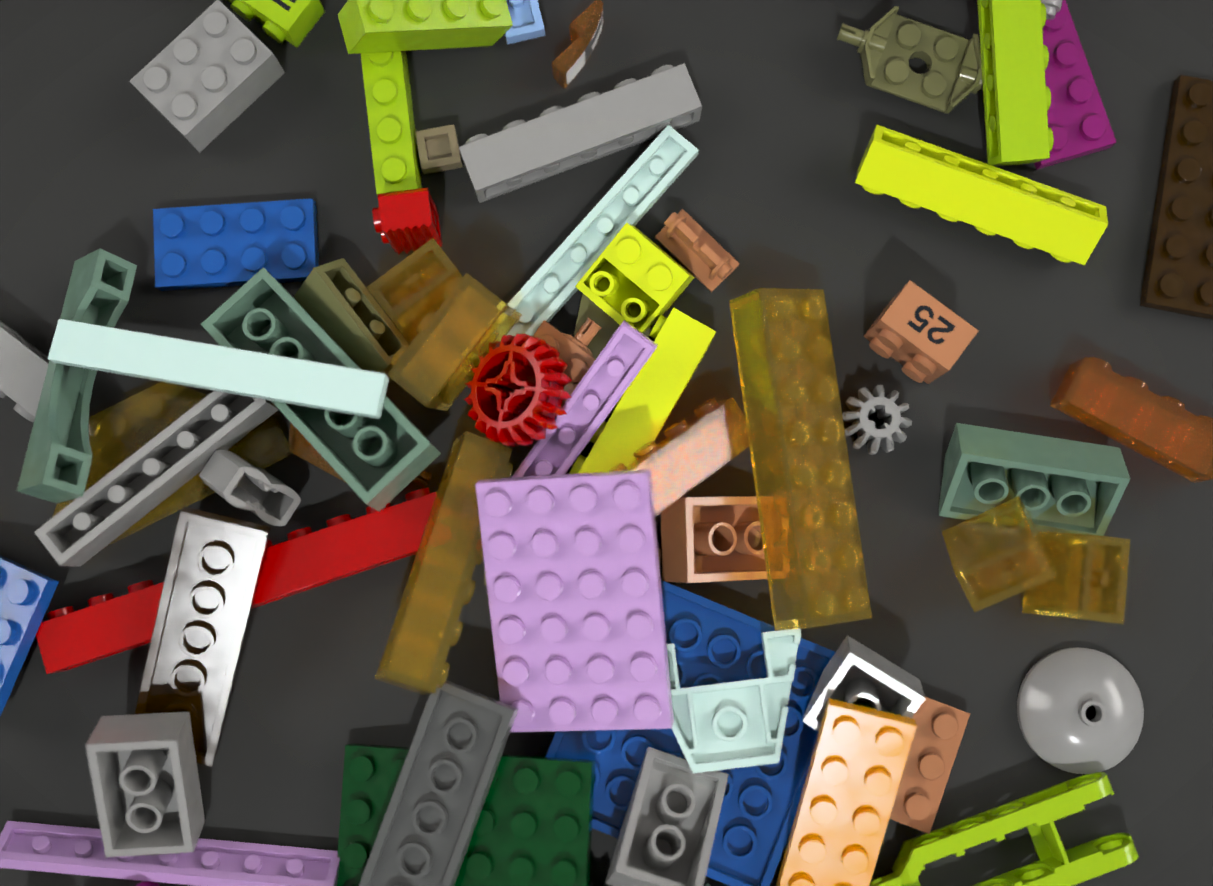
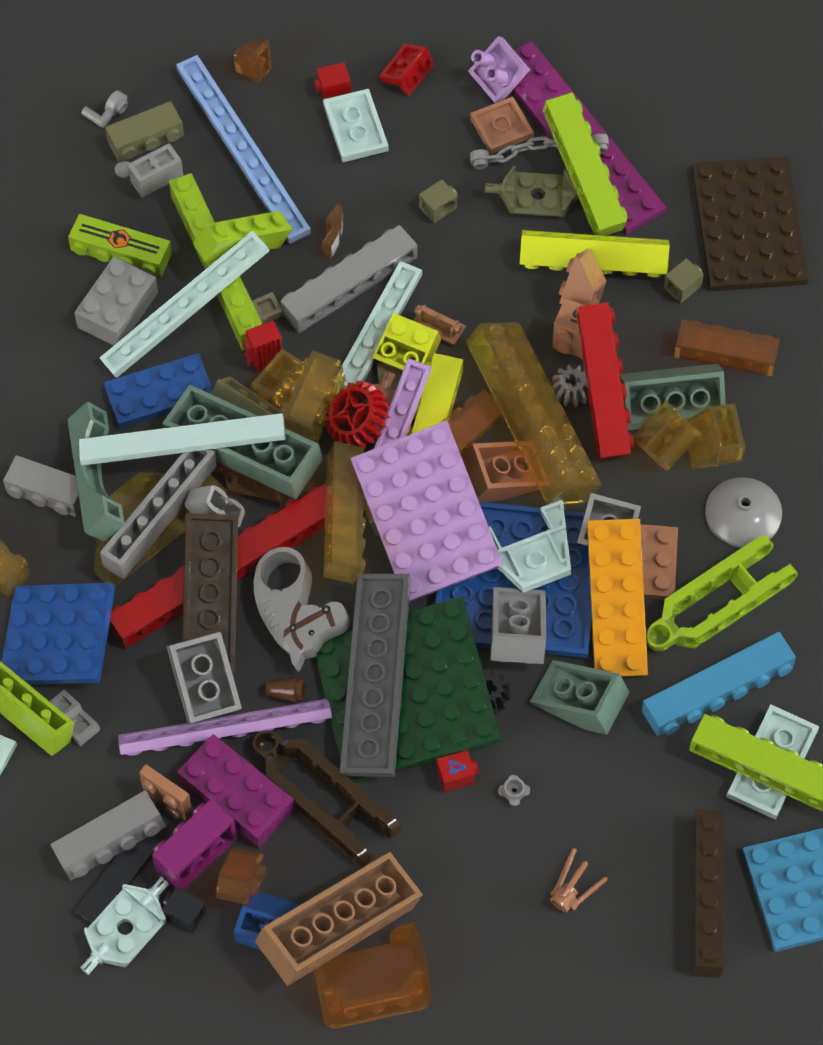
camera: 15 degrees left, 20 degrees down
(283, 821) = (287, 689): none -> reddish brown cone
(306, 113) = (184, 304): none -> light aqua plate
(312, 700) = (294, 624): none -> light grey animal
(759, 33) = (438, 201): none -> olive brick
(931, 441) = (603, 380): none -> red brick
(947, 250) = (584, 281): none -> nougat slope
(1107, 281) = (683, 280): none -> olive brick

